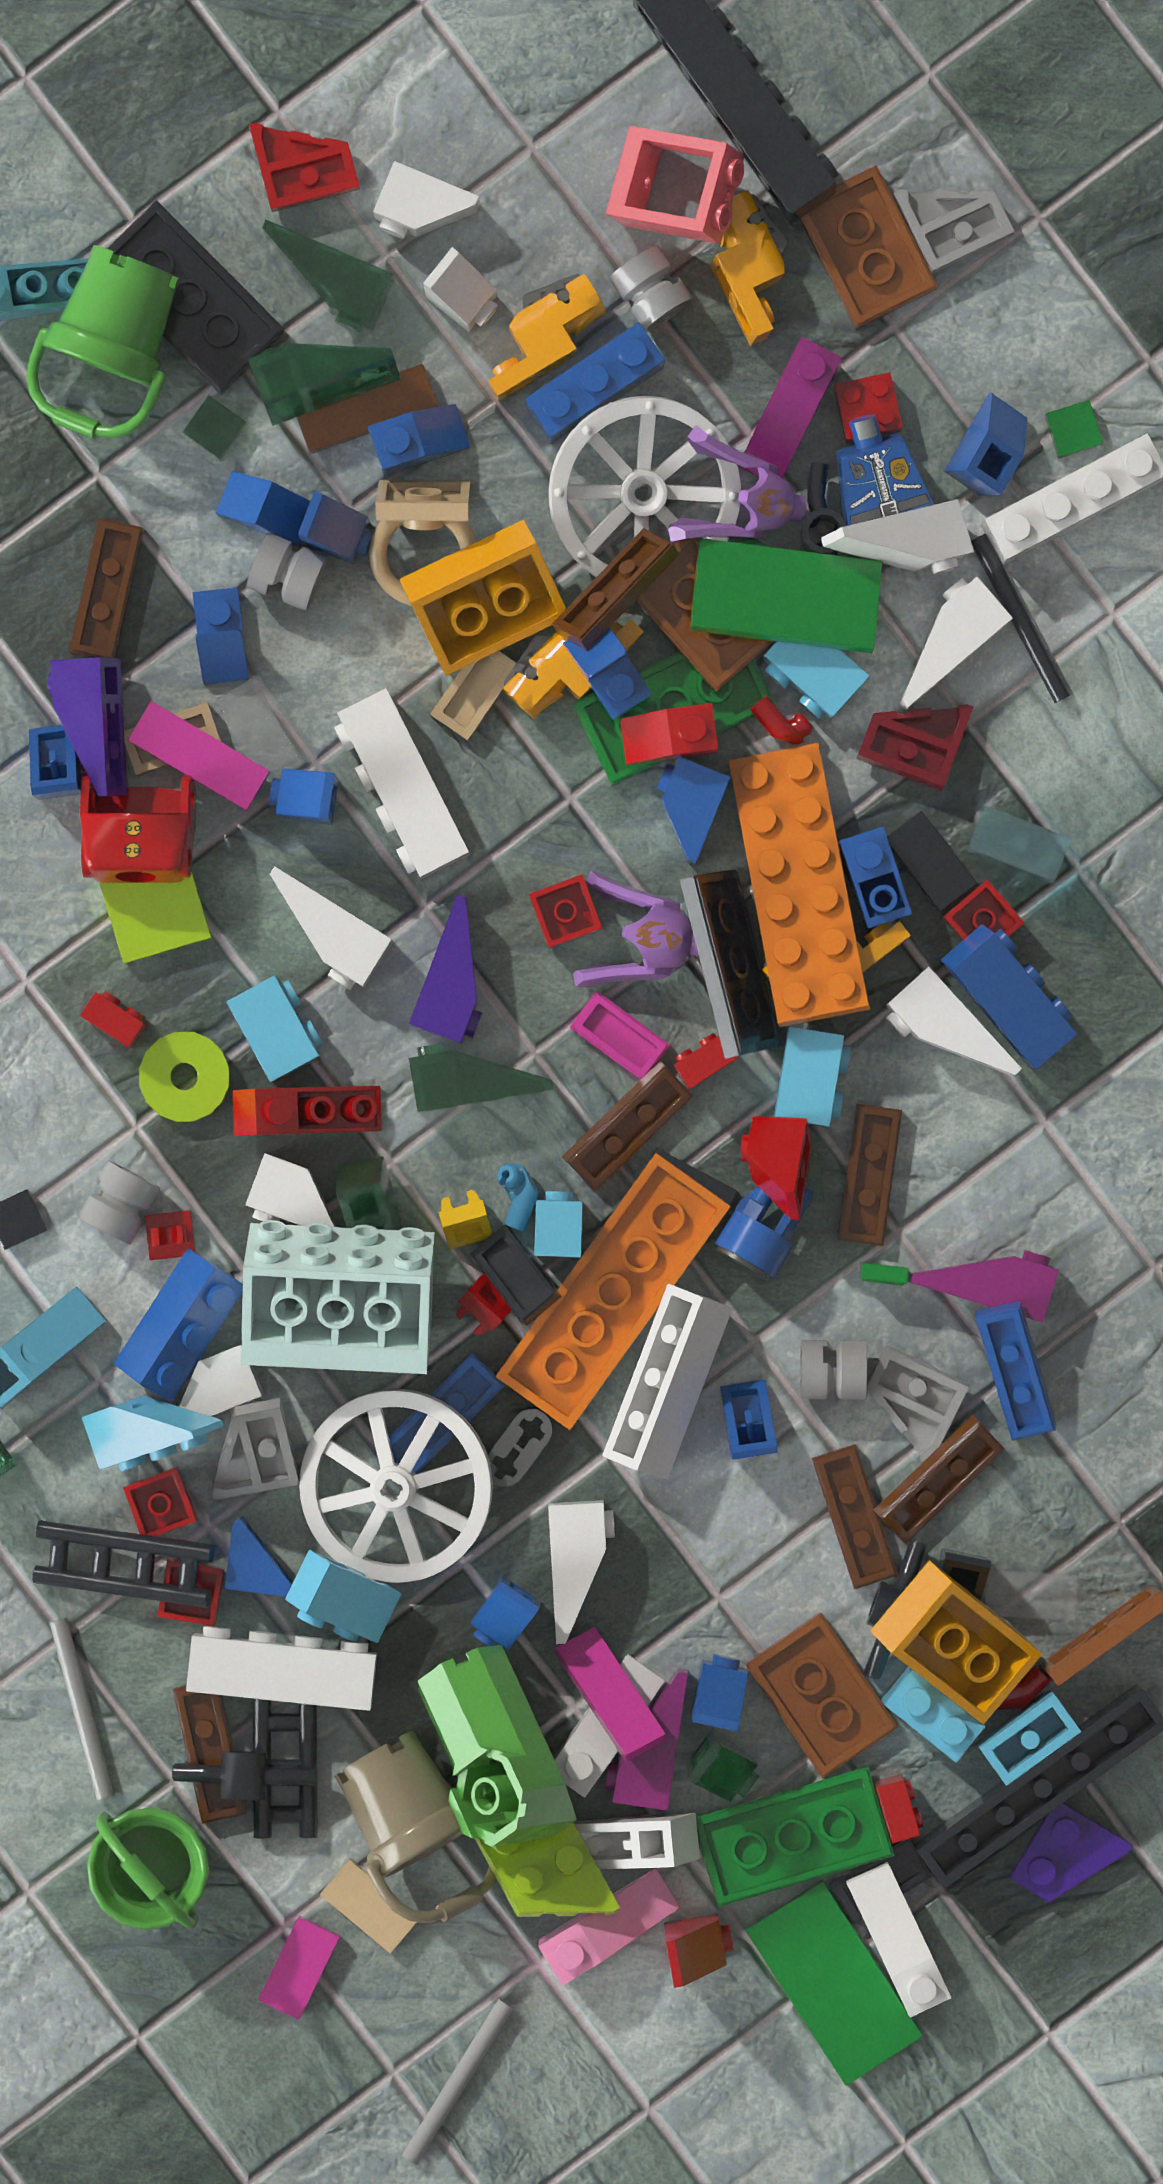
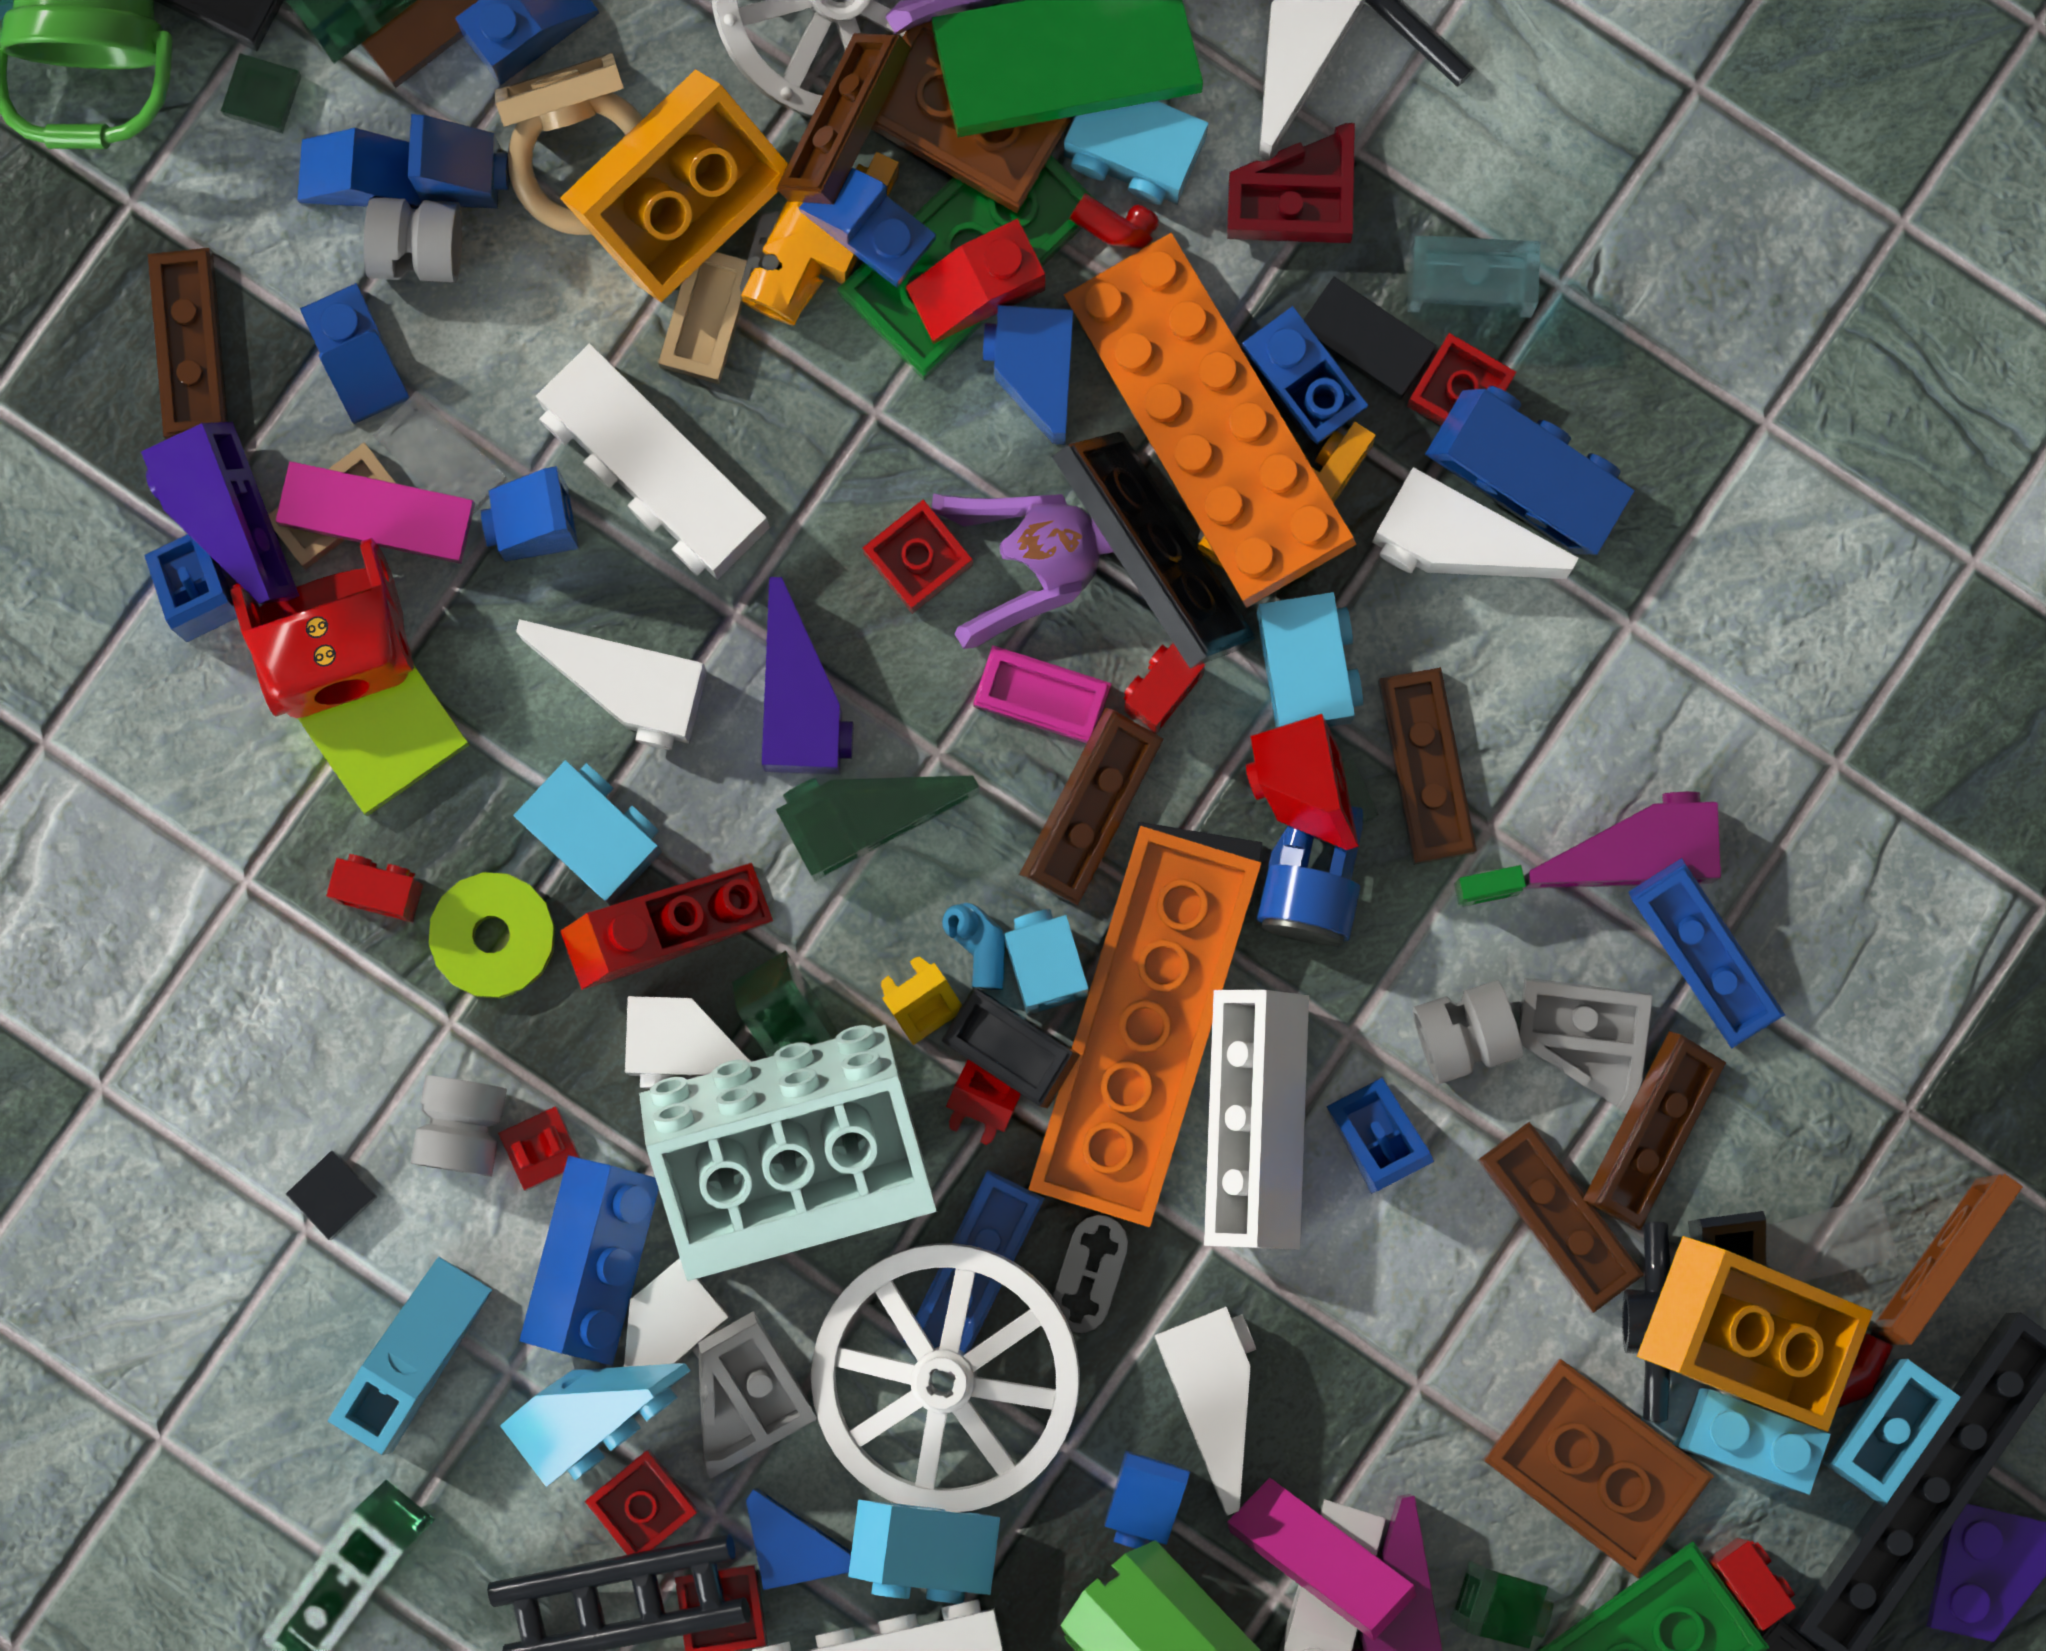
camera: 20 degrees left, 5 degrees down
(719, 1693) = (1465, 1508): blue slope -> none

